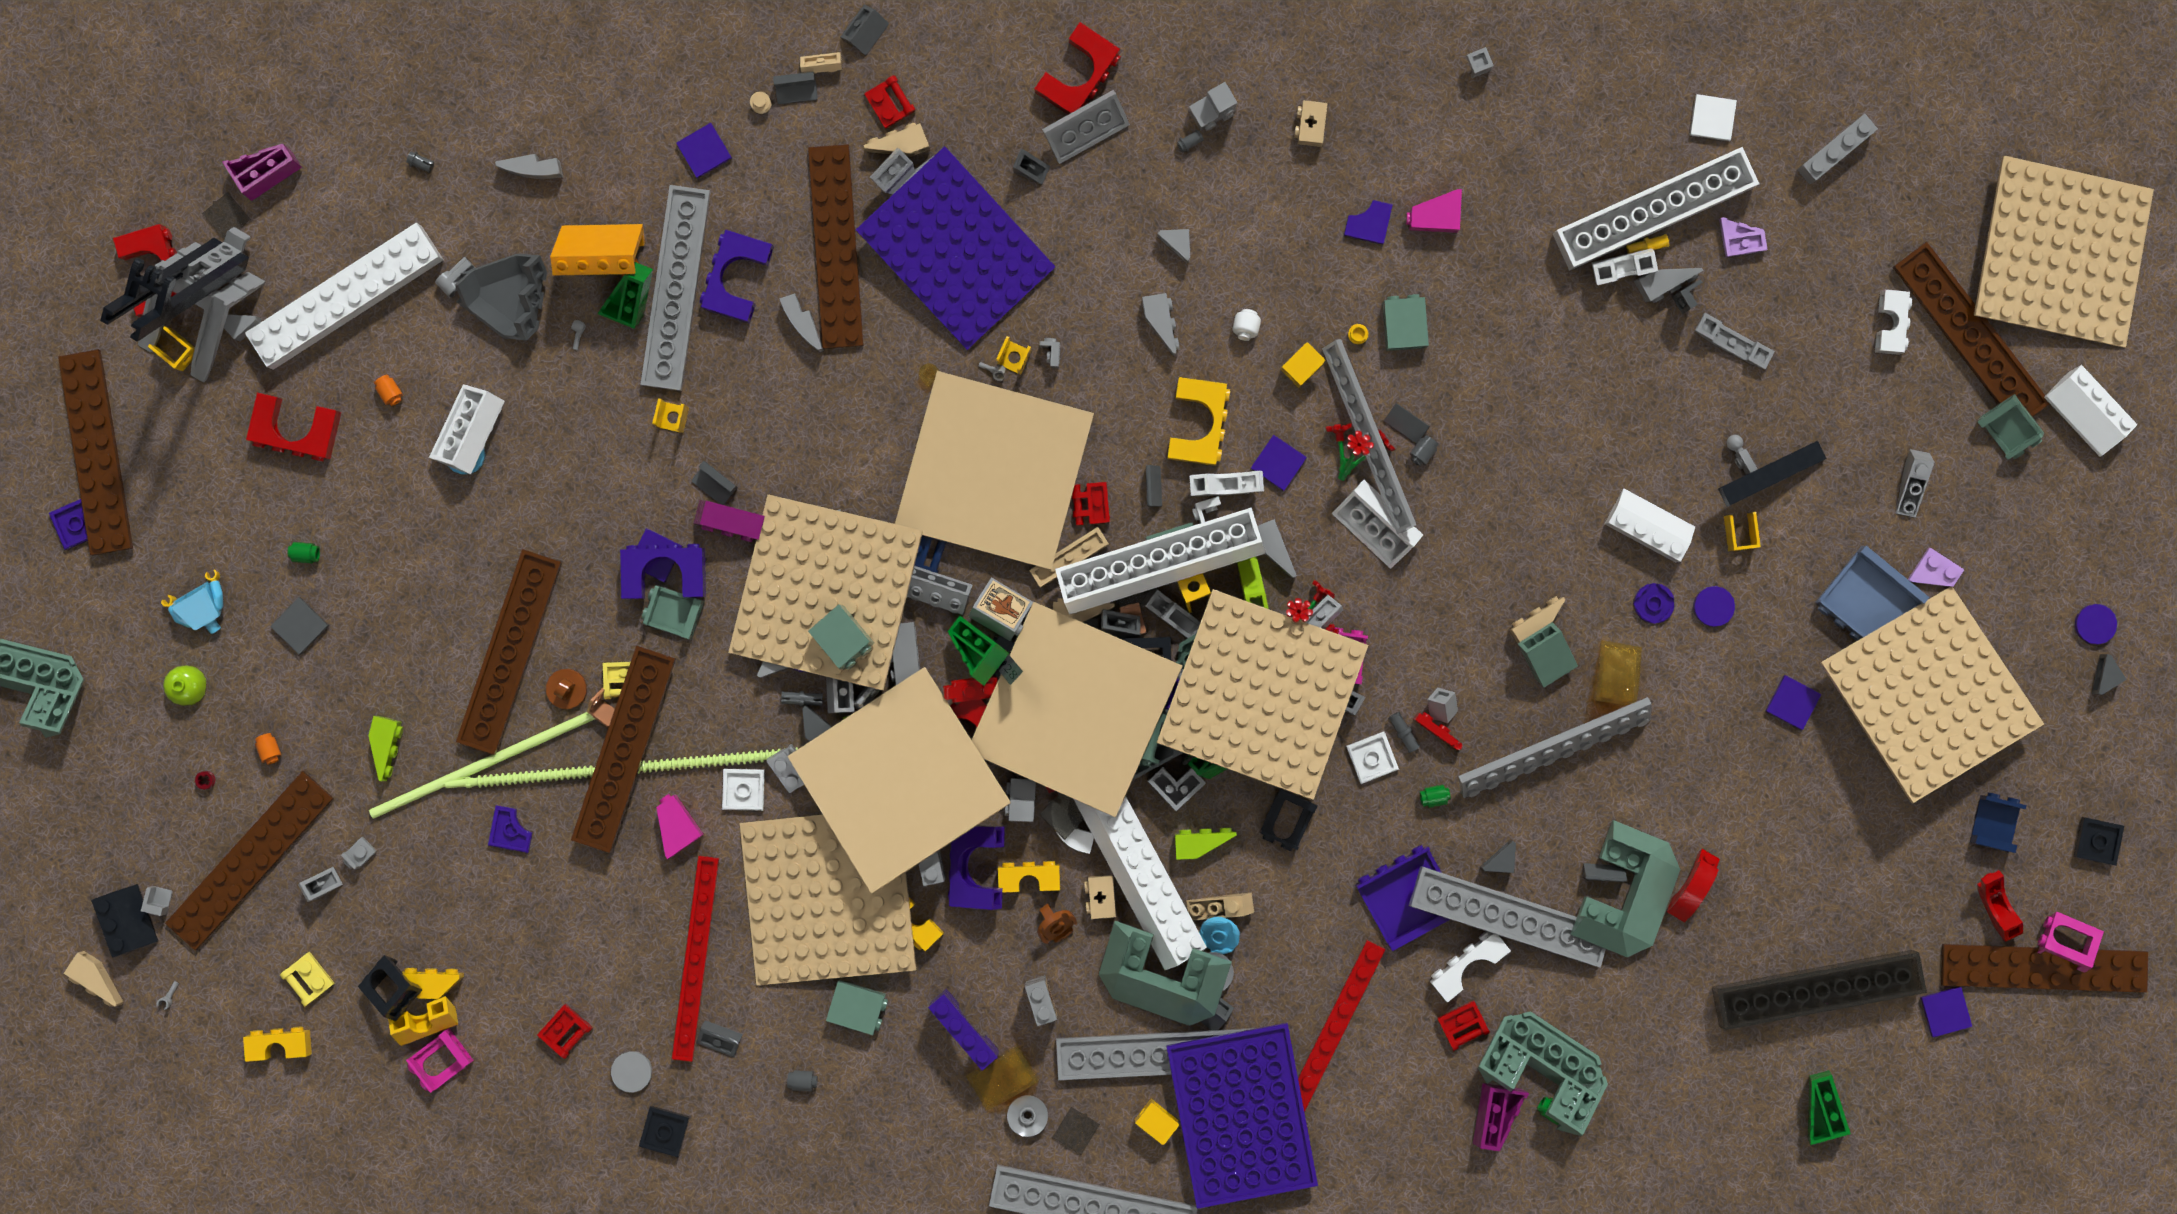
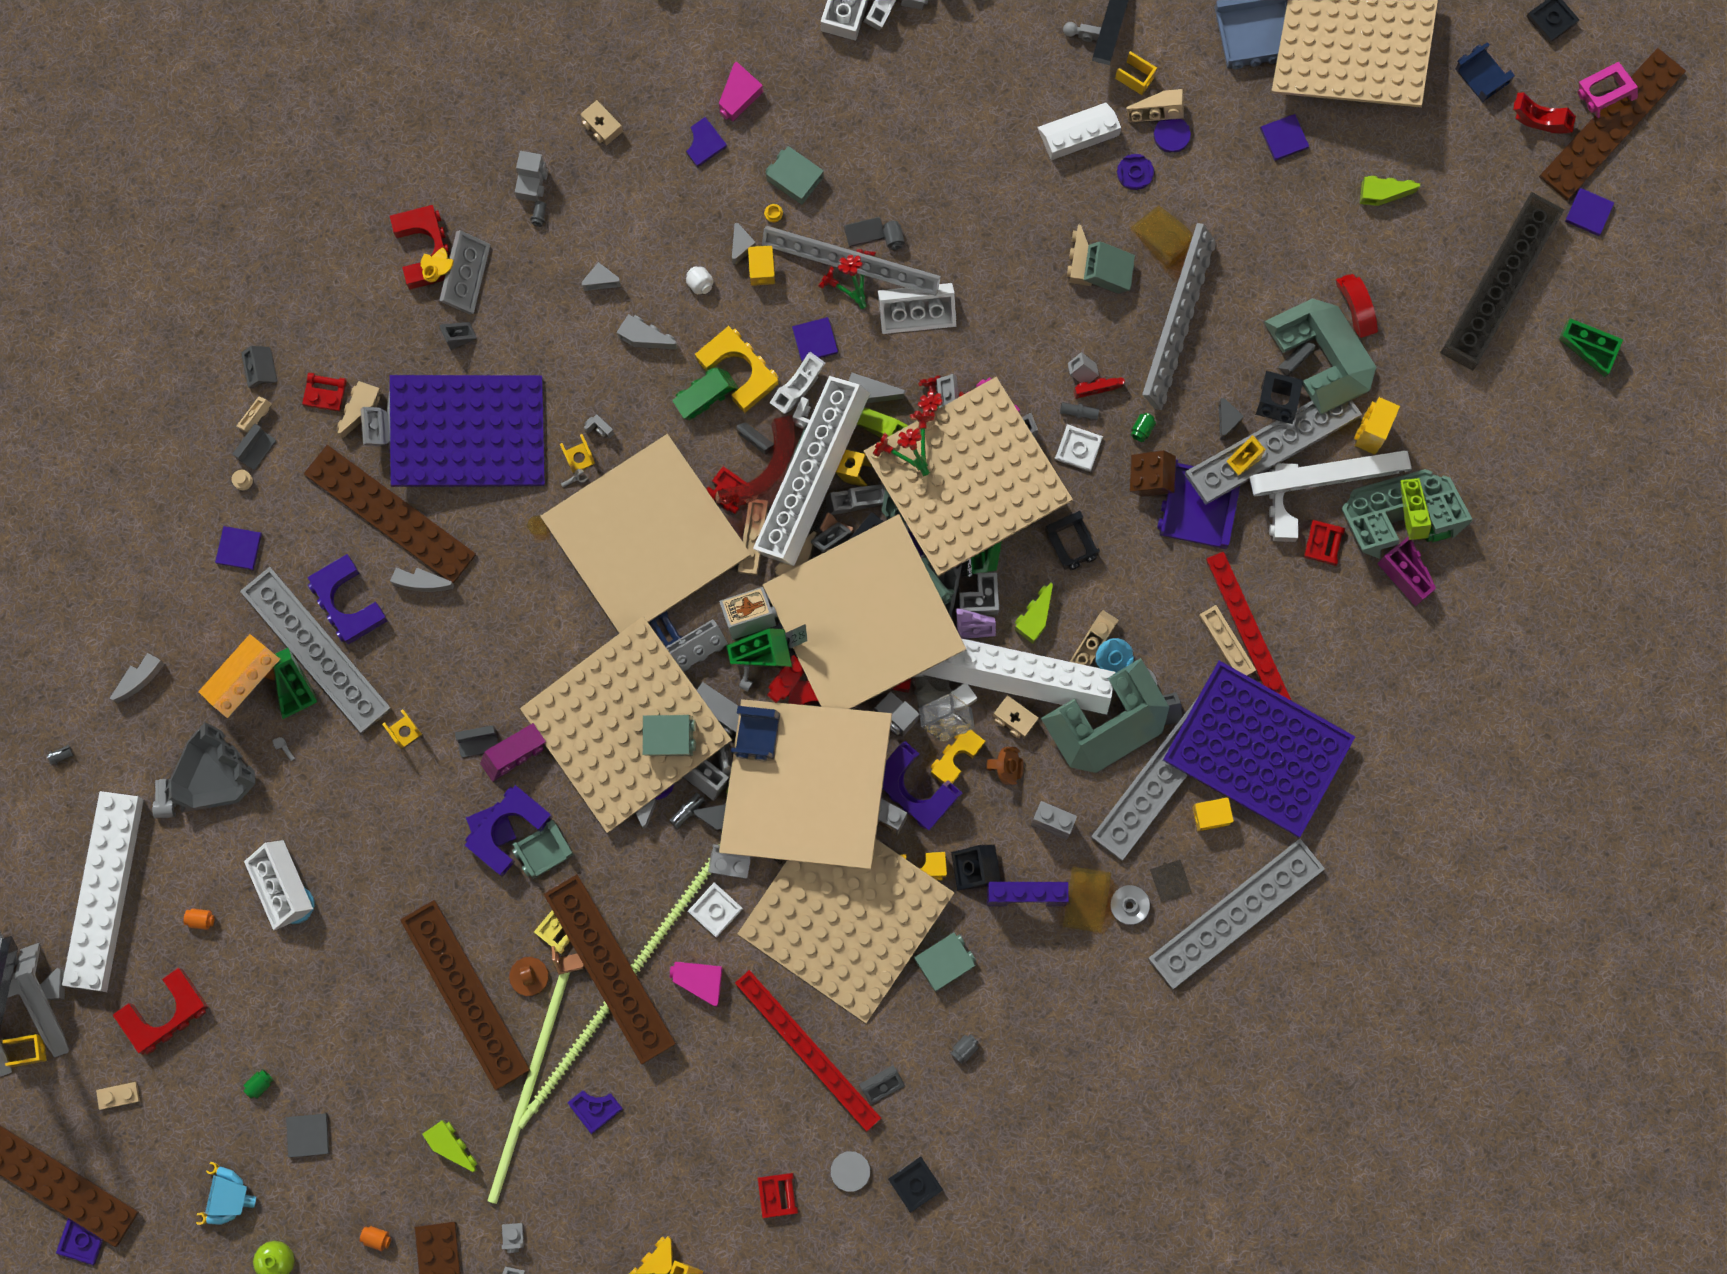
camera: 50 degrees left, 10 degrees down
(203, 451) = (118, 1095): none -> tan plate
(905, 705) = (756, 733): none -> dark blue panel
(944, 656) = (745, 683): none -> light grey hand
(953, 968) = (975, 867): none -> black slope
(1050, 845) = (946, 717): none -> clear brick
(1072, 99) = (436, 265): none -> yellow plate
(1148, 800) = (974, 624): none -> lavender wing
(1154, 413) = (704, 393): none -> green wedge
(1157, 521) = (783, 437): none -> clear red arch
(1246, 627) = (910, 440): none -> red plant
(1307, 331) = (741, 243): none -> light grey slope
(1311, 1015) = (1226, 641): none -> tan plate
(1399, 839) = (1152, 473): none -> reddish brown brick
(1477, 906) = (1246, 455): none -> yellow slope
(1525, 984) = (1330, 473): none -> white beam
(1552, 1080) = (1415, 509): none -> lime slope
(1570, 880) = (1283, 385): none -> black panel
(1597, 990) = (1376, 425): none -> yellow brick
(1729, 577) = (1161, 106): none -> tan slope
(1810, 821) = (1381, 191): none -> lime slope

